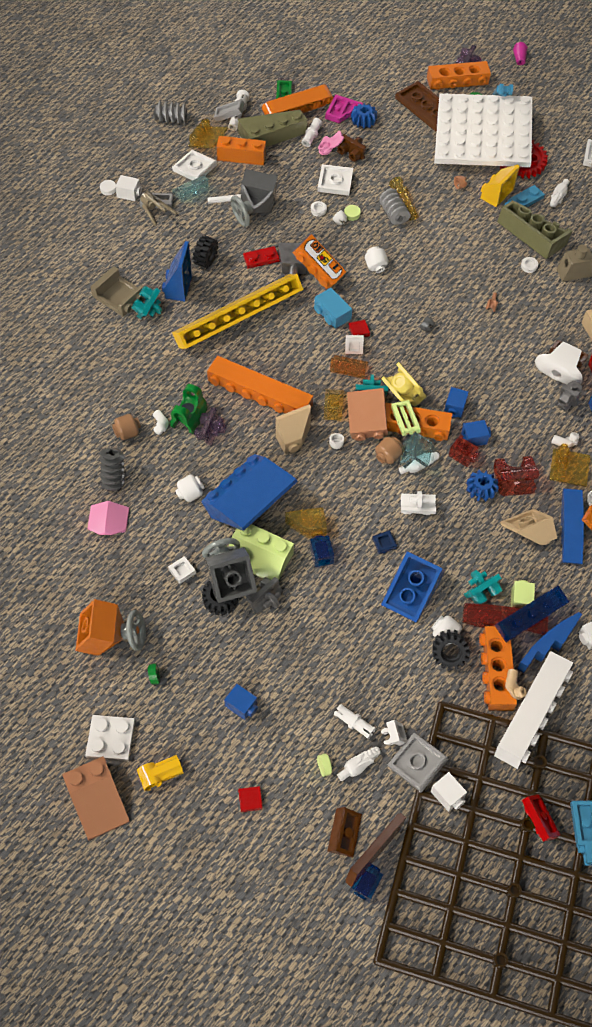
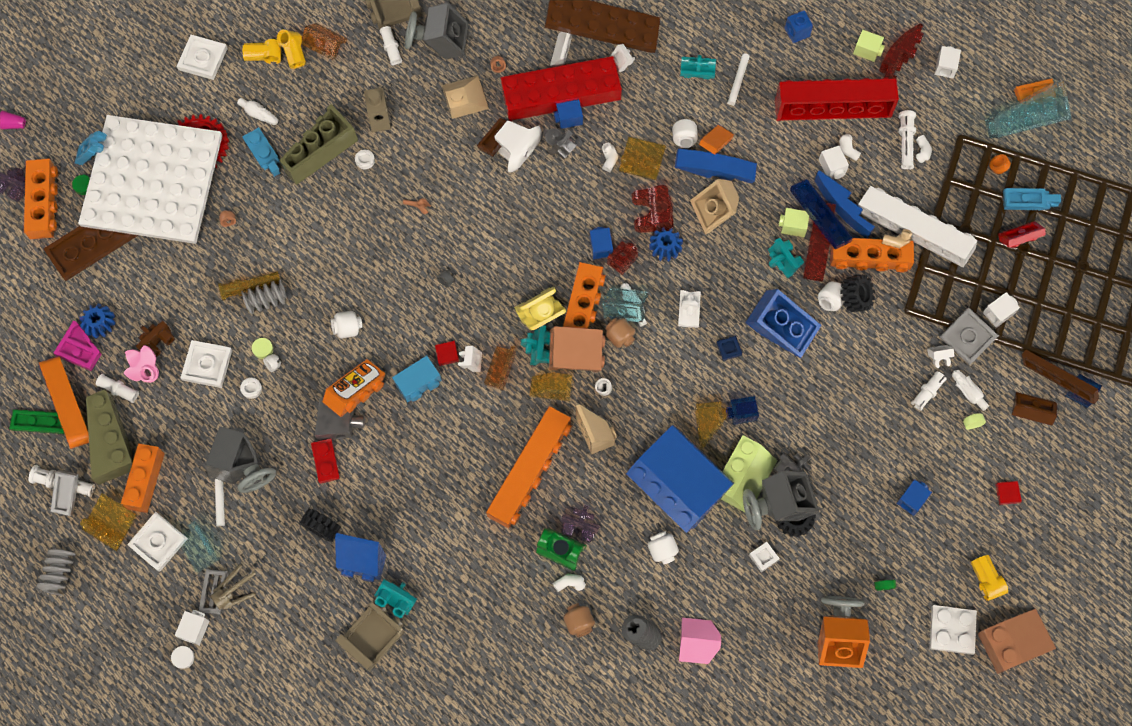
camera: 85 degrees left, 10 degrees up
(237, 311) = (417, 488): yellow brick -> none
(409, 429) = (588, 316): yellowish green tile -> none
(456, 402) = (560, 258): blue brick -> none
(500, 185) = (244, 173): yellow slope -> none

